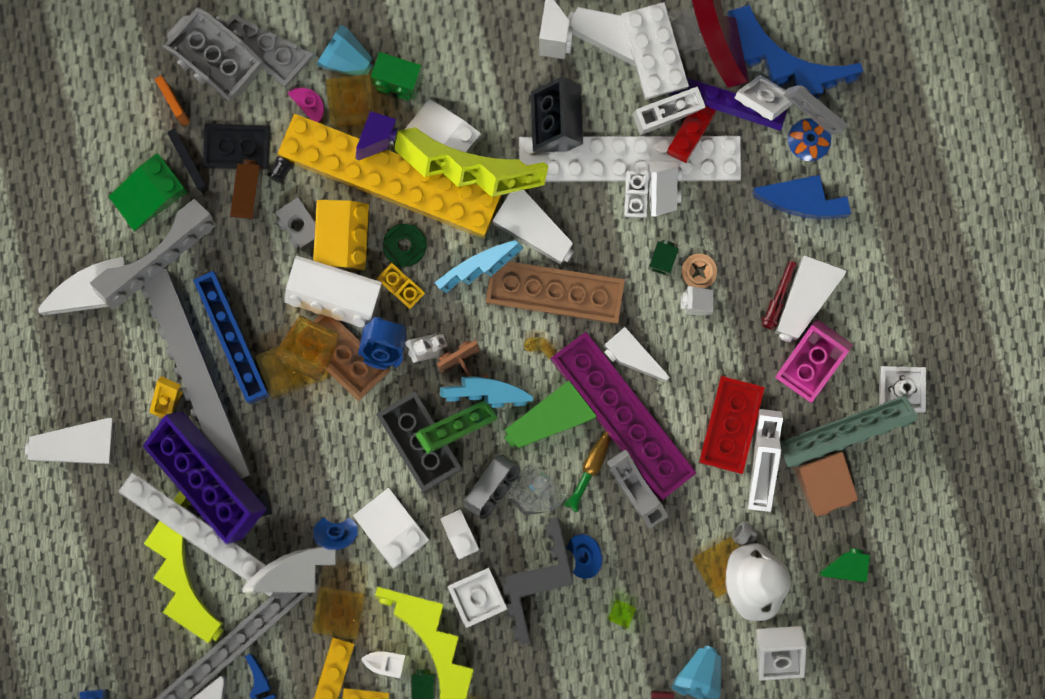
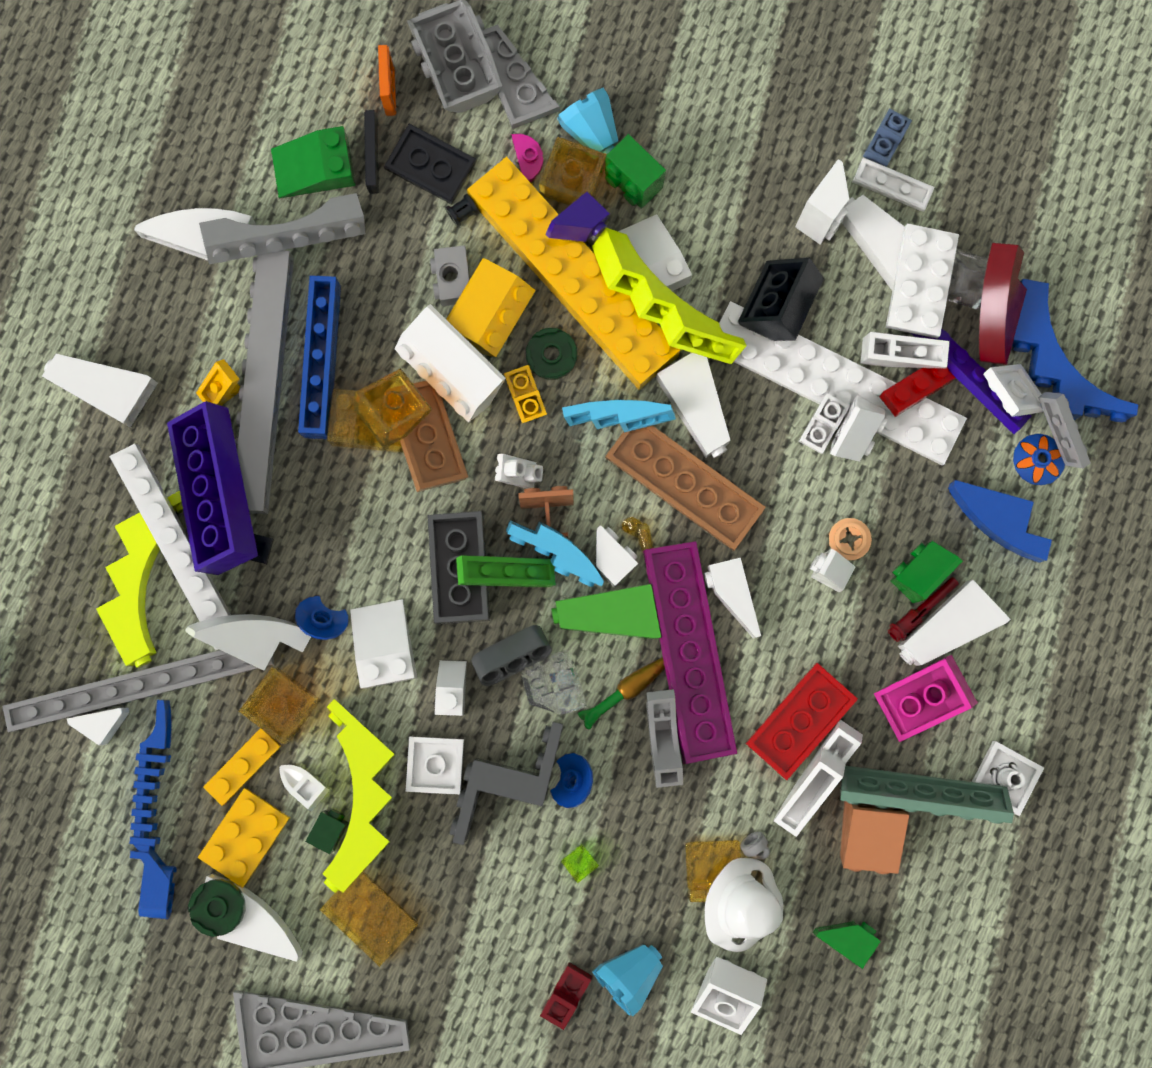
camera: 25 degrees right, 0 degrees up
(247, 190) = (415, 212): reddish brown slope -> none
(382, 343) = (473, 443): blue brick -> none
(530, 377) = (611, 558): none -> white slope
(663, 257) = (819, 505): dark green brick -> none
(766, 267) = (925, 571): none -> green slope

